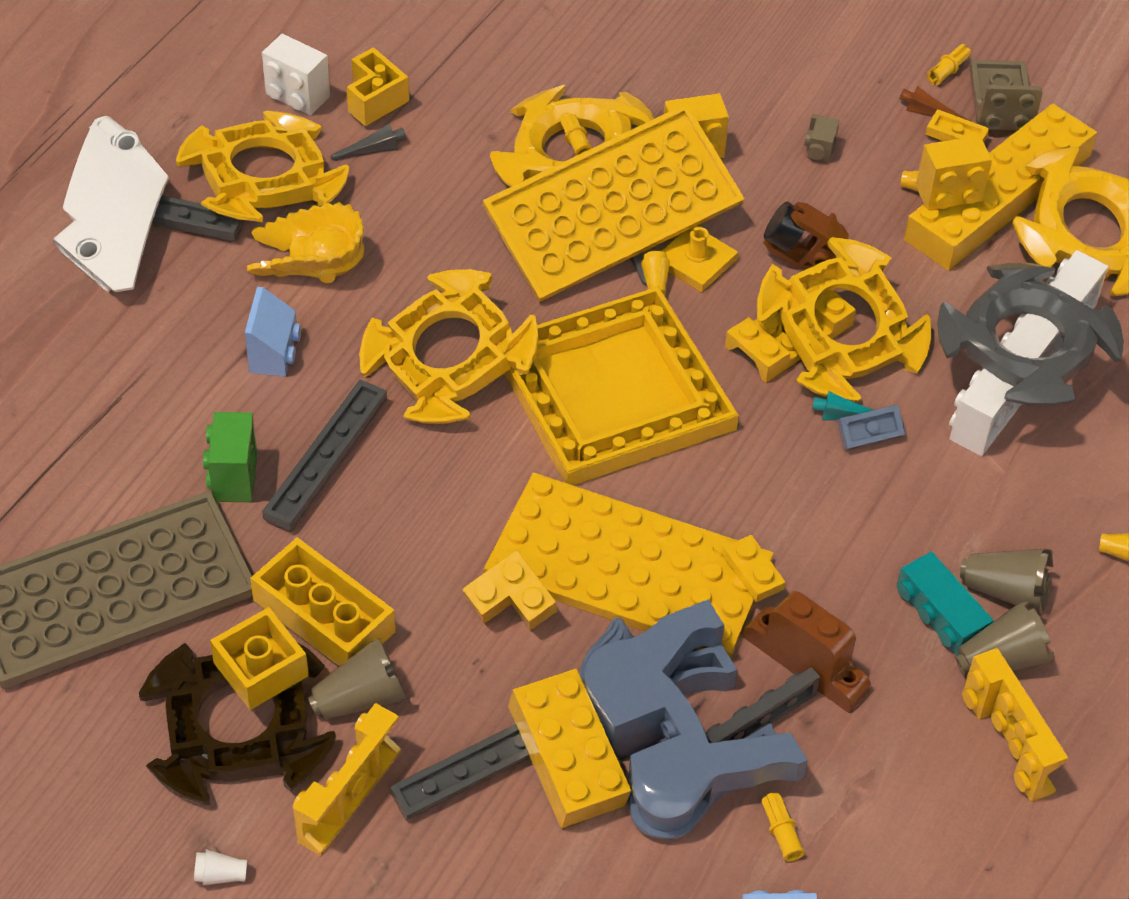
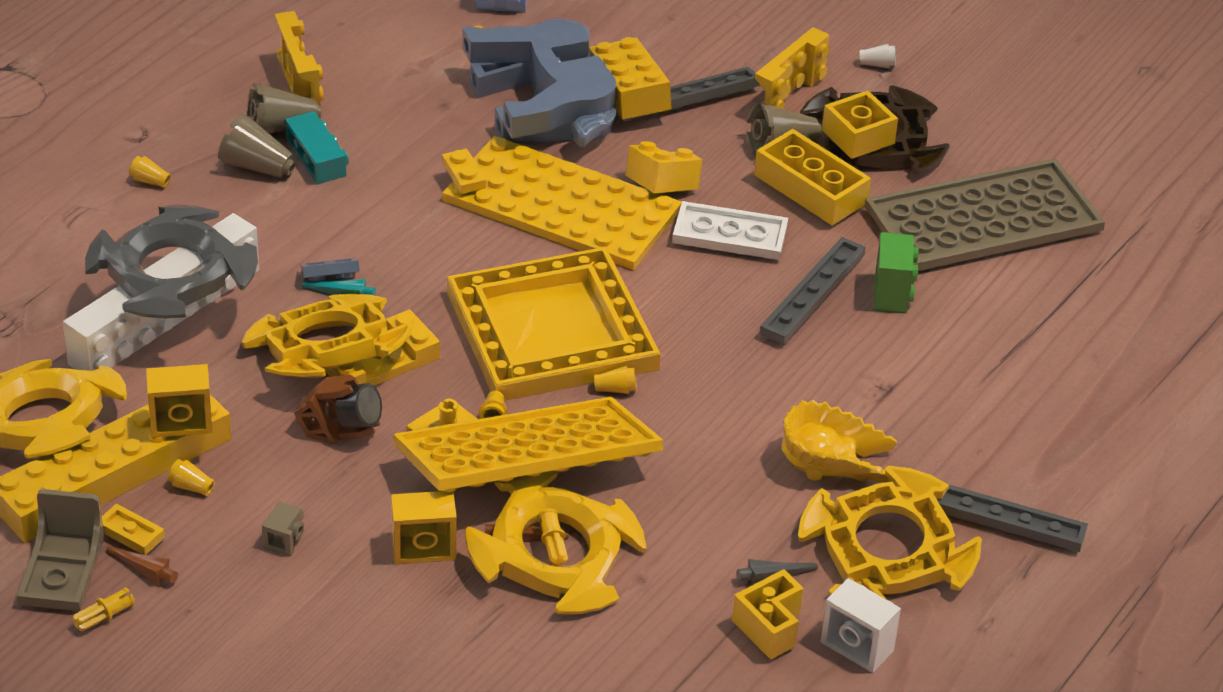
camera: 175 degrees left, 10 degrees down
(111, 205) = (1040, 510): white panel -> none
(271, 334) = (867, 371): light blue slope -> none
(423, 530) = (730, 230): none -> white plate
(440, 388) = (692, 374): yellow piece -> none
(542, 314) = (617, 381): none -> yellow cone
(768, 708) = (480, 97): dark grey plate -> none
(808, 636) = (436, 114): dark orange brick -> none

